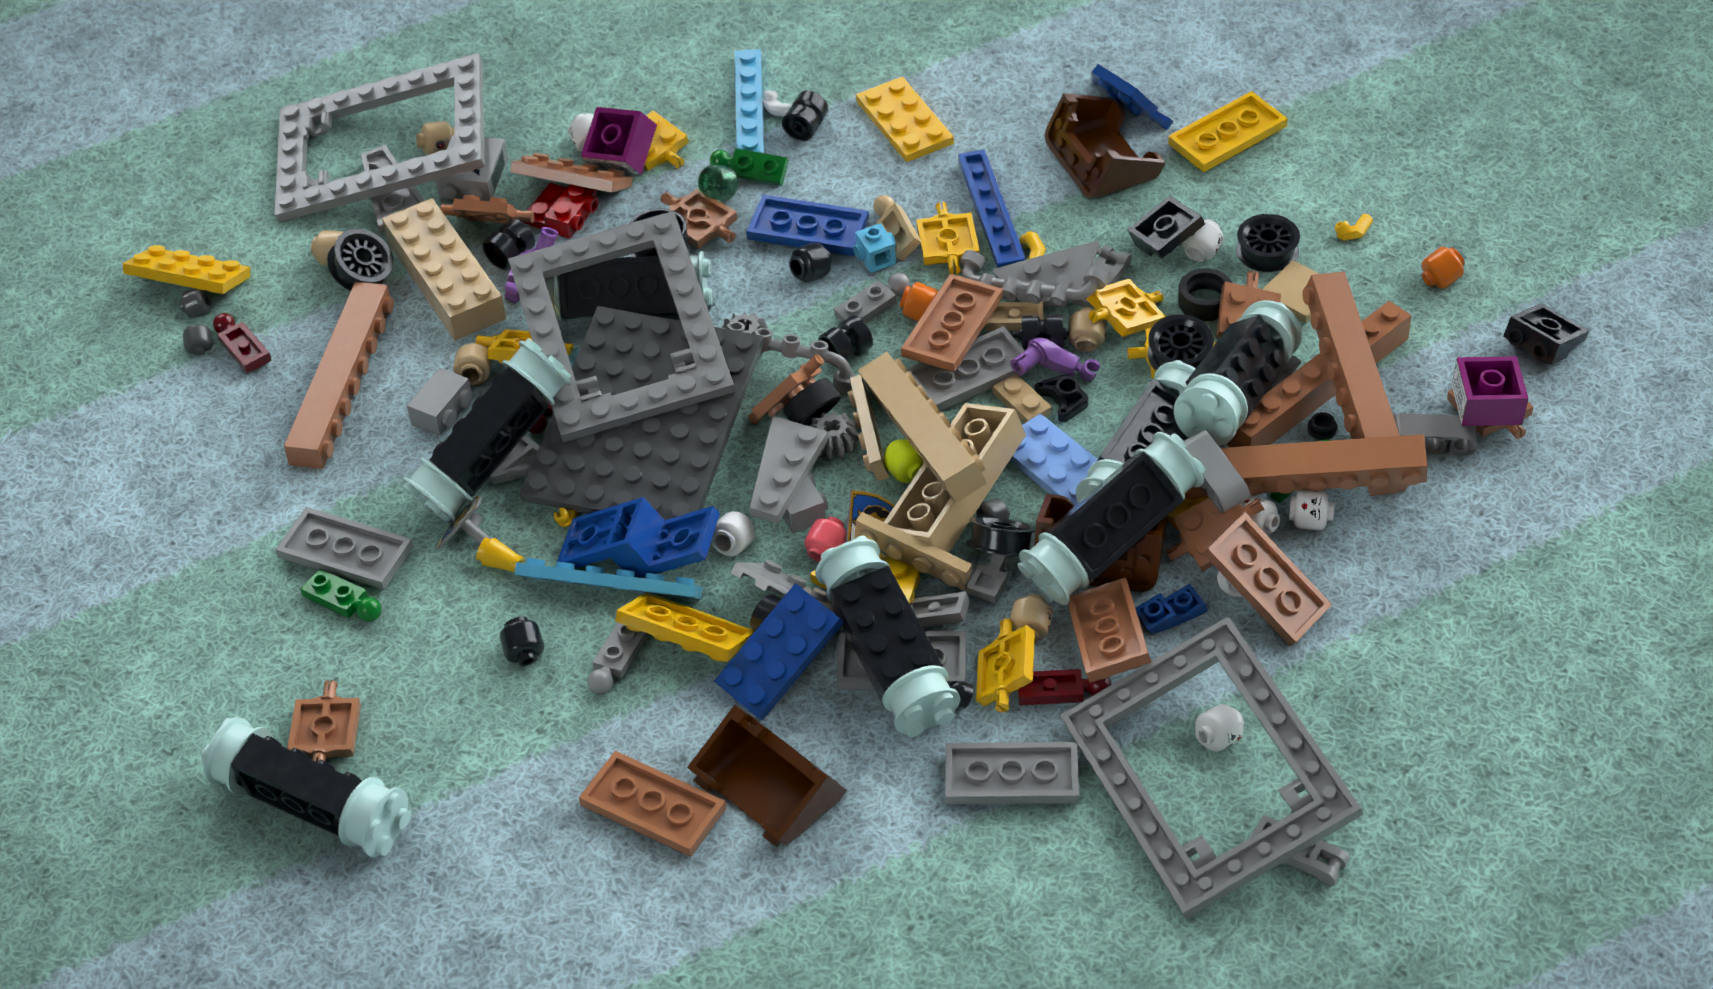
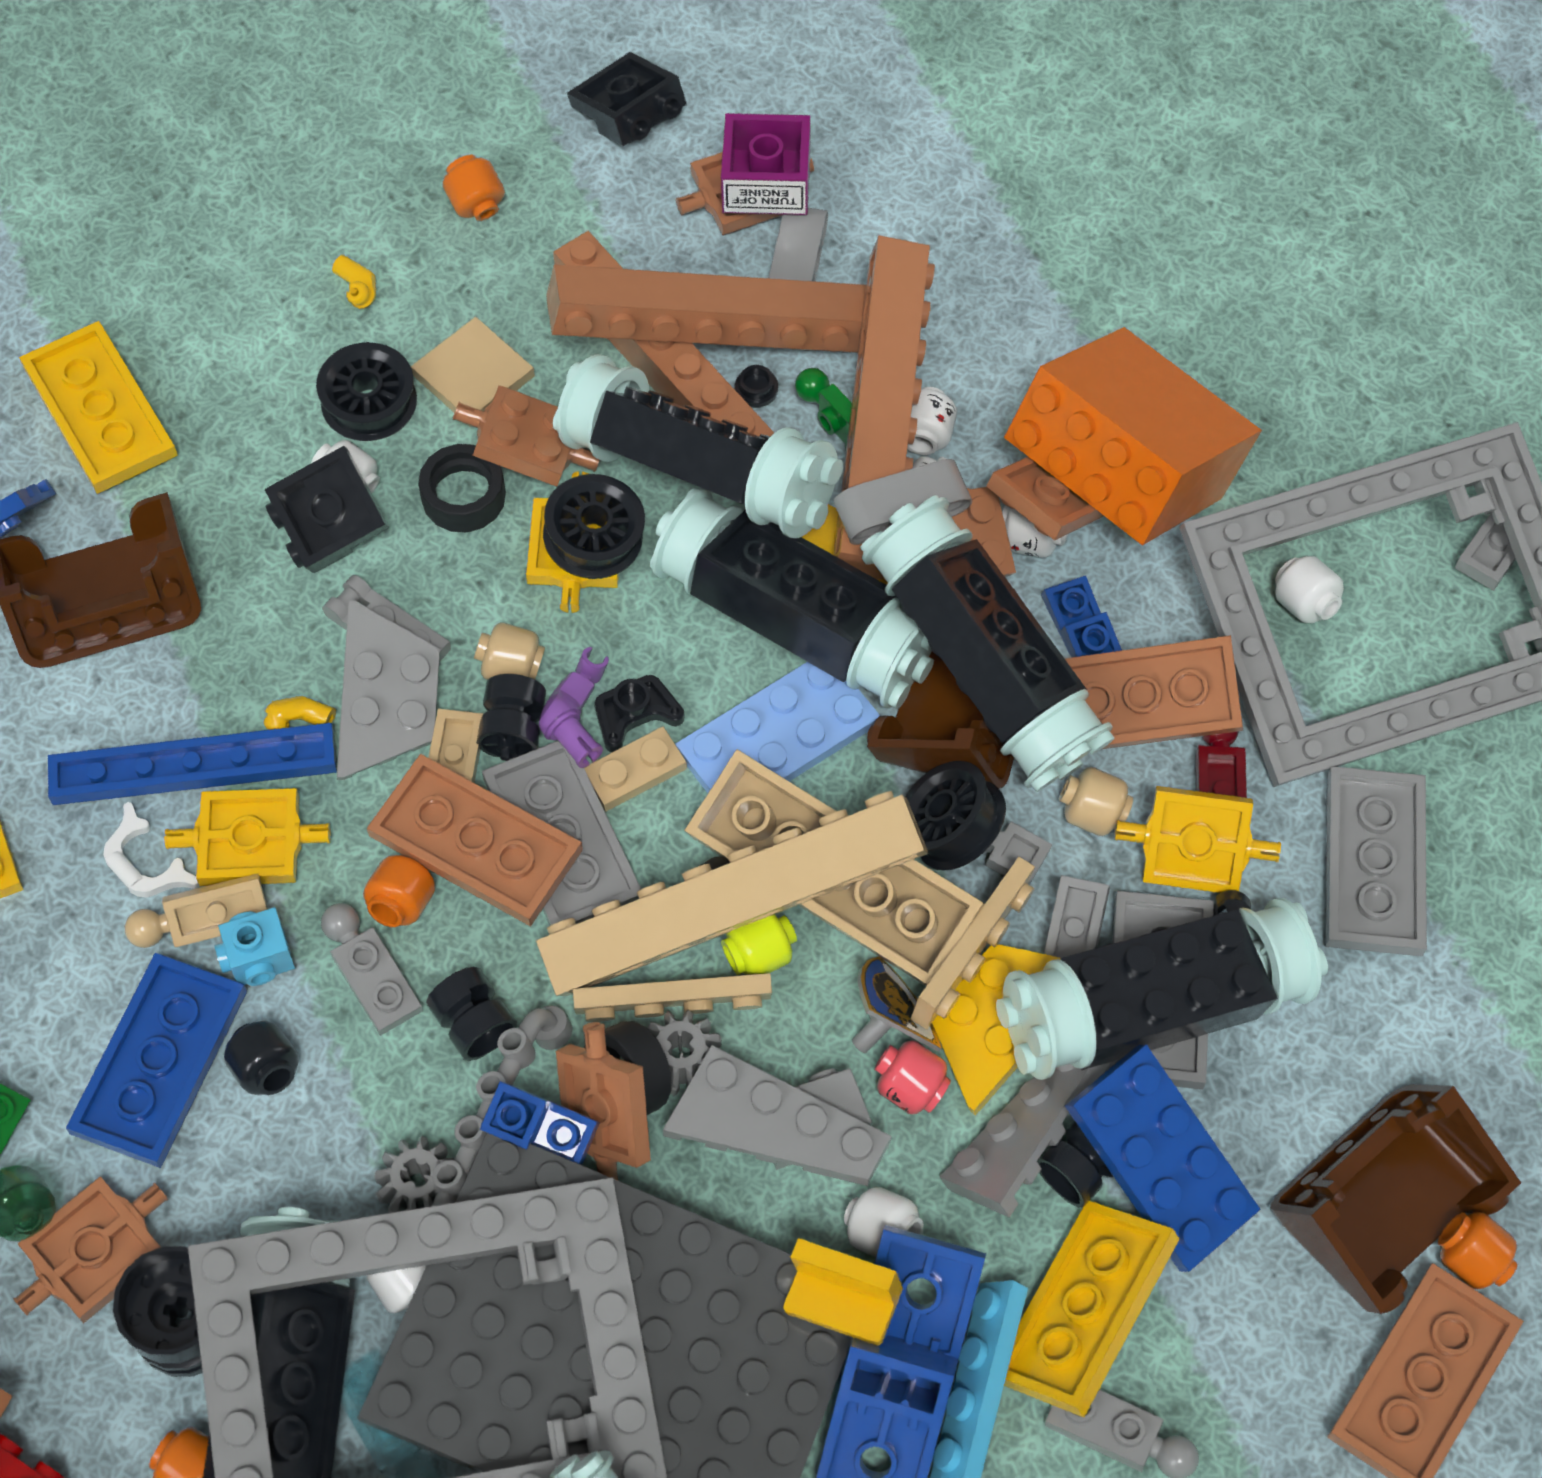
camera: 90 degrees left, 15 degrees up
(679, 496) = (842, 1292): none -> yellow panel
(736, 826) = (1478, 1250): none -> orange head
(770, 358) = (530, 1119): none -> blue slope
(932, 191) = (136, 883): none -> white helmet
(1059, 295) = (406, 746): light grey bar -> none
(1126, 307) = (480, 592): yellow plate -> none
(1304, 595) = (1131, 434): none -> orange brick

